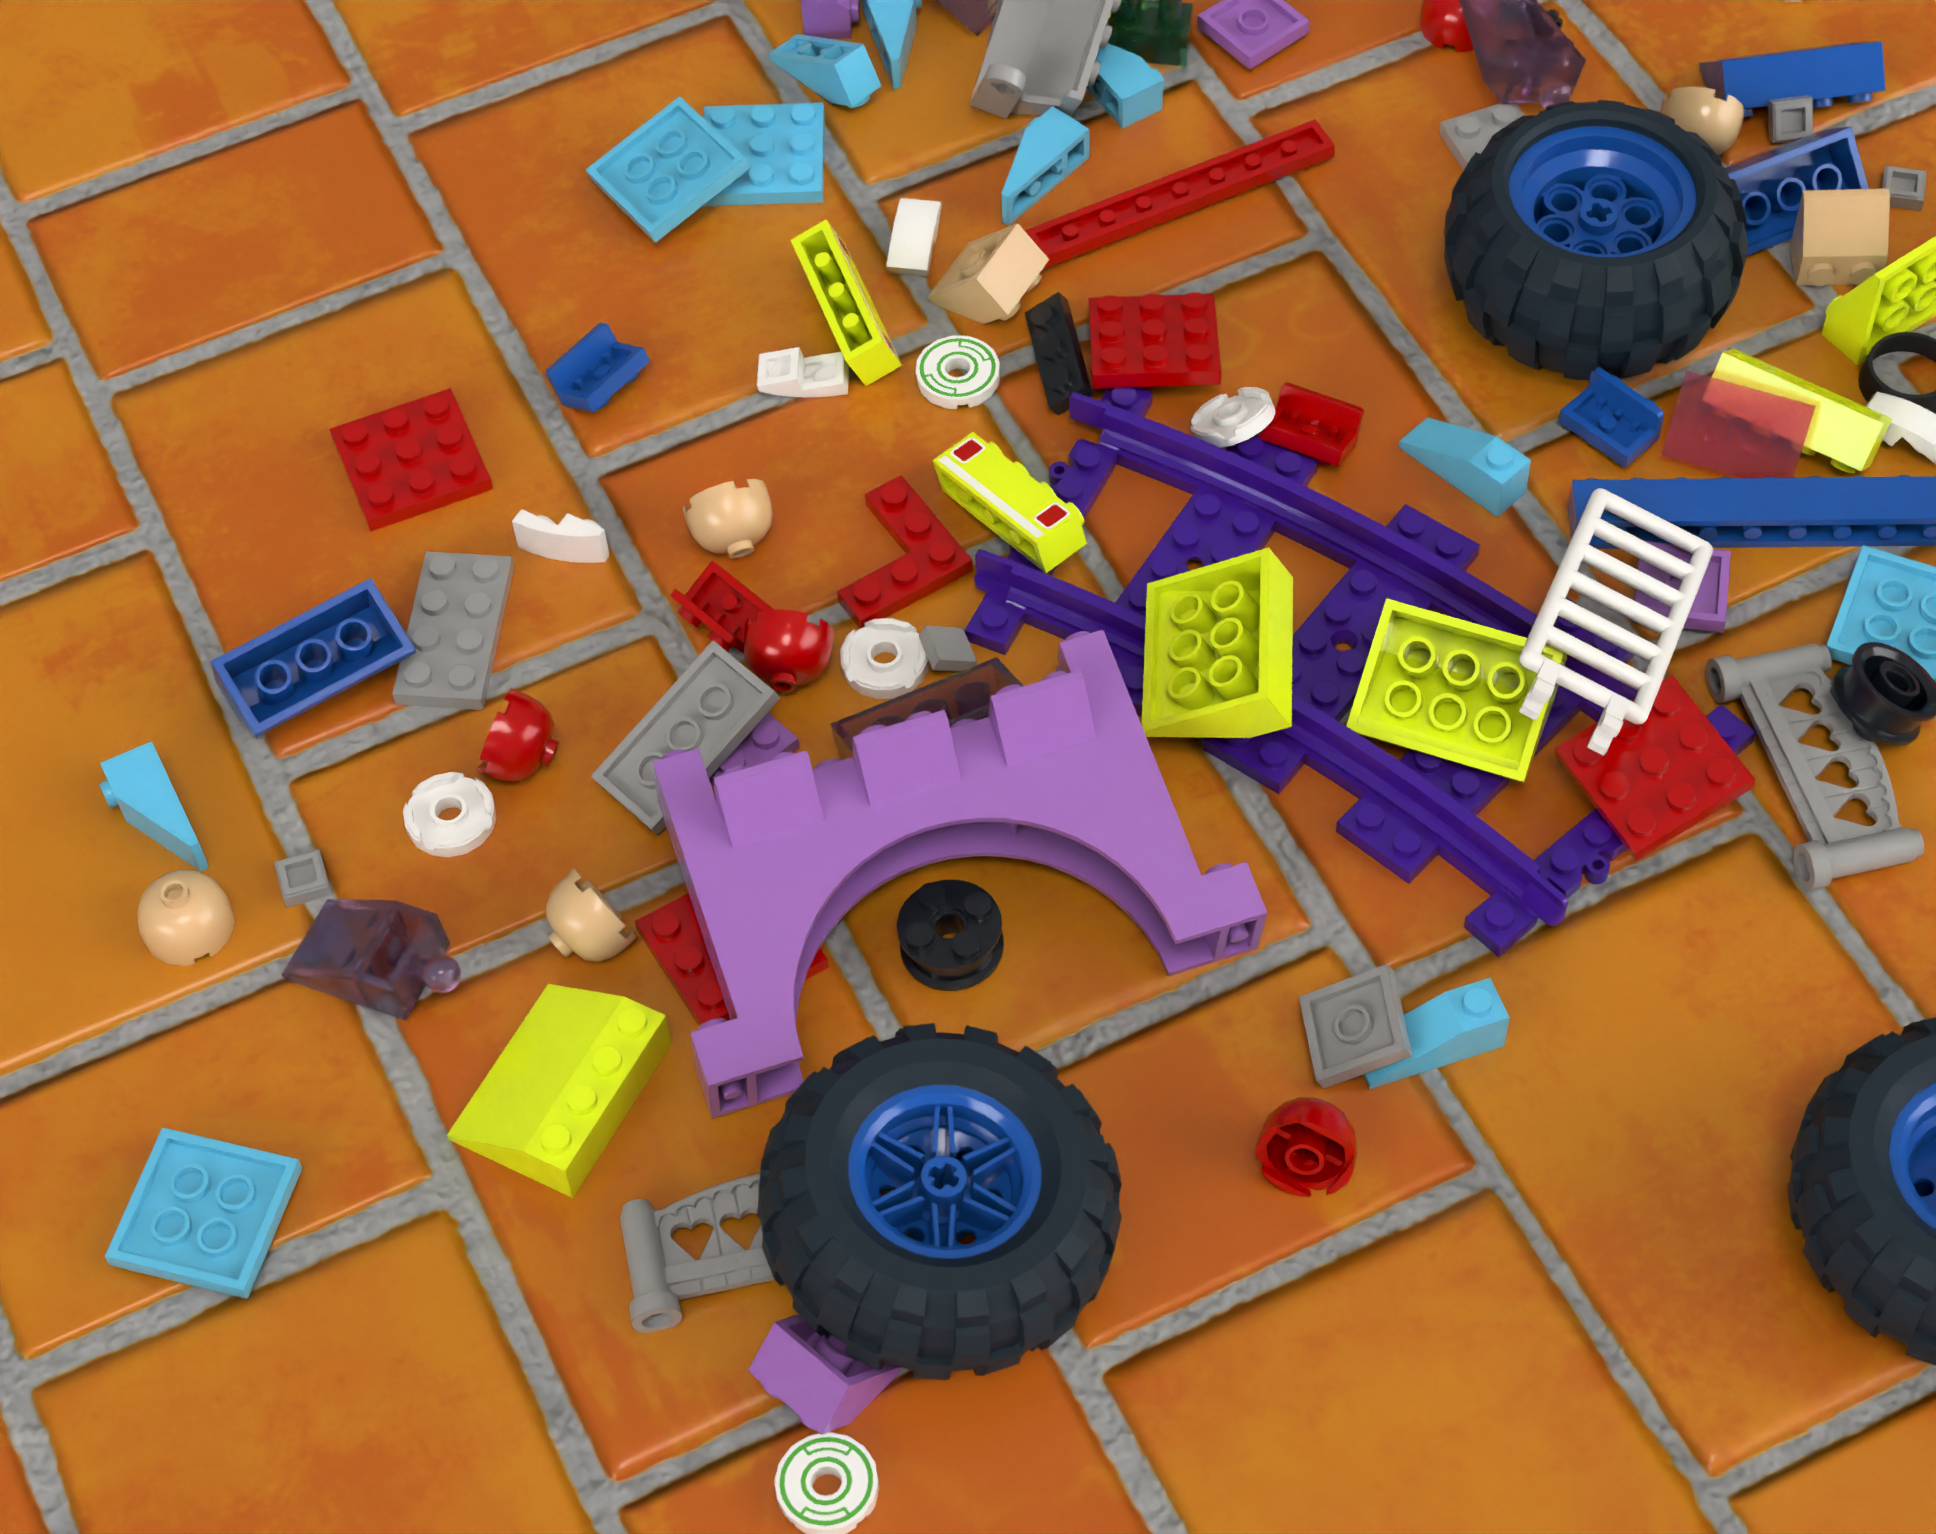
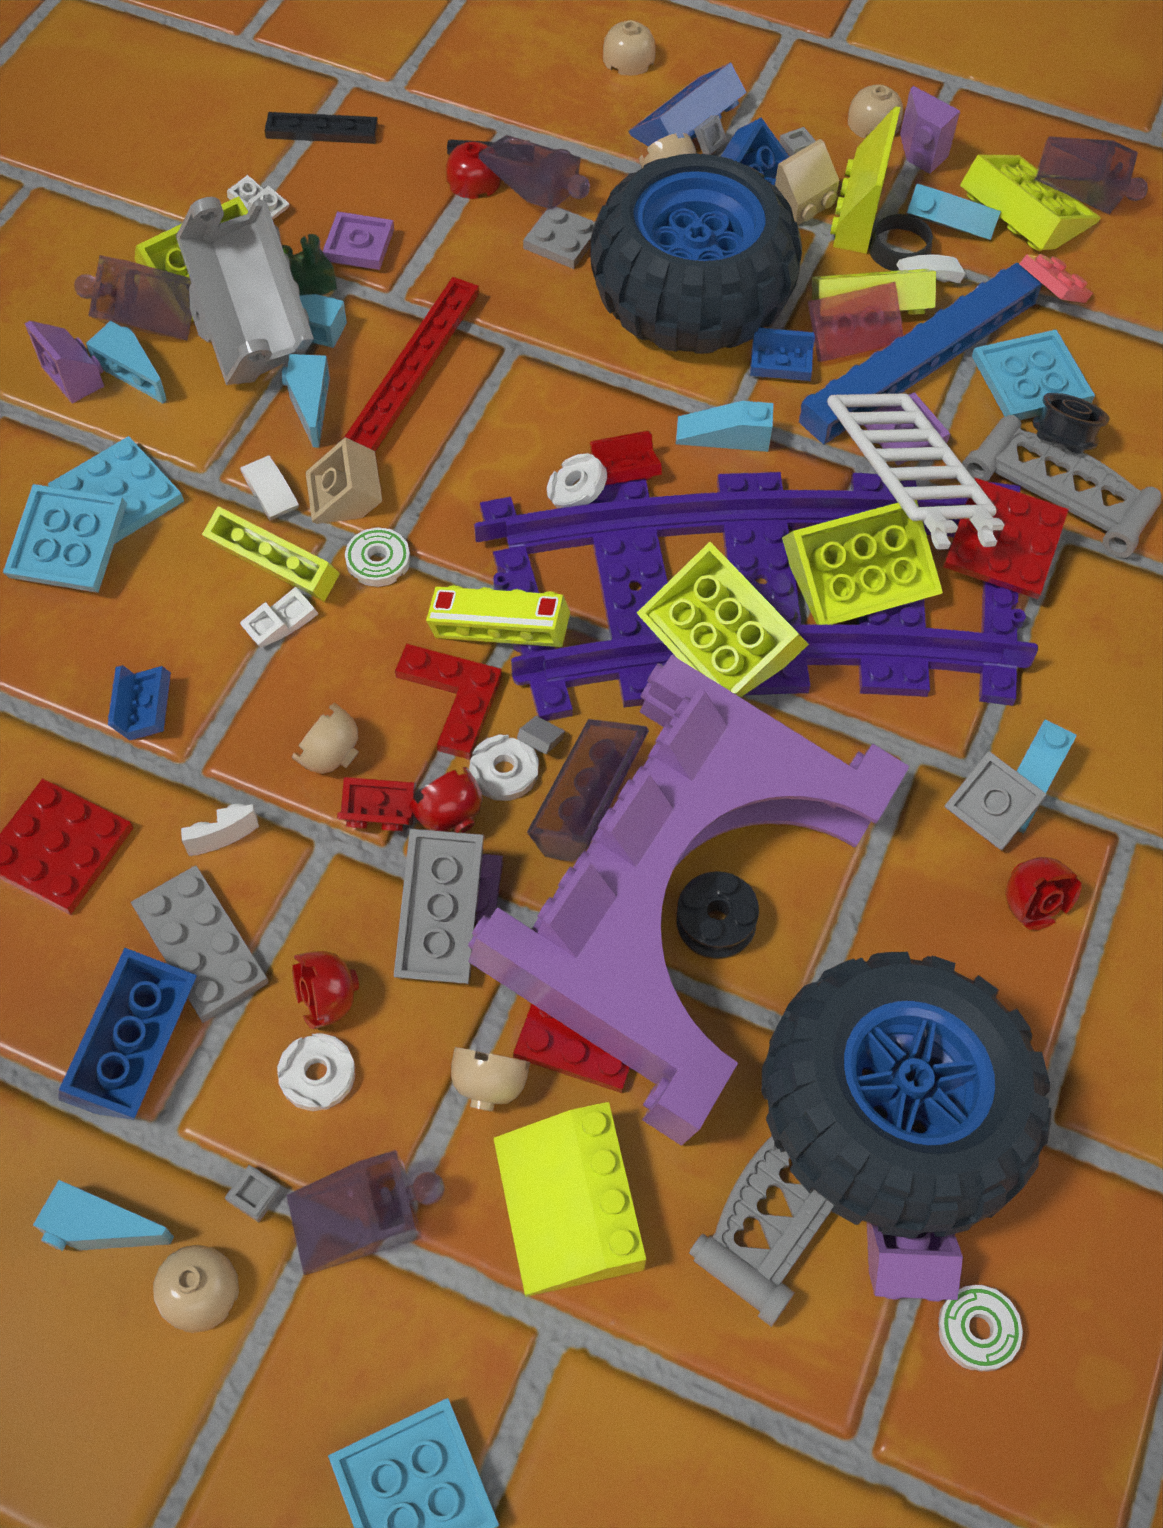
camera: 45 degrees left, 5 degrees up
(829, 67) = (112, 411): medium azure slope -> none
(1057, 352) = (432, 506): black plate -> none
(1154, 340) = (483, 464): red plate -> none

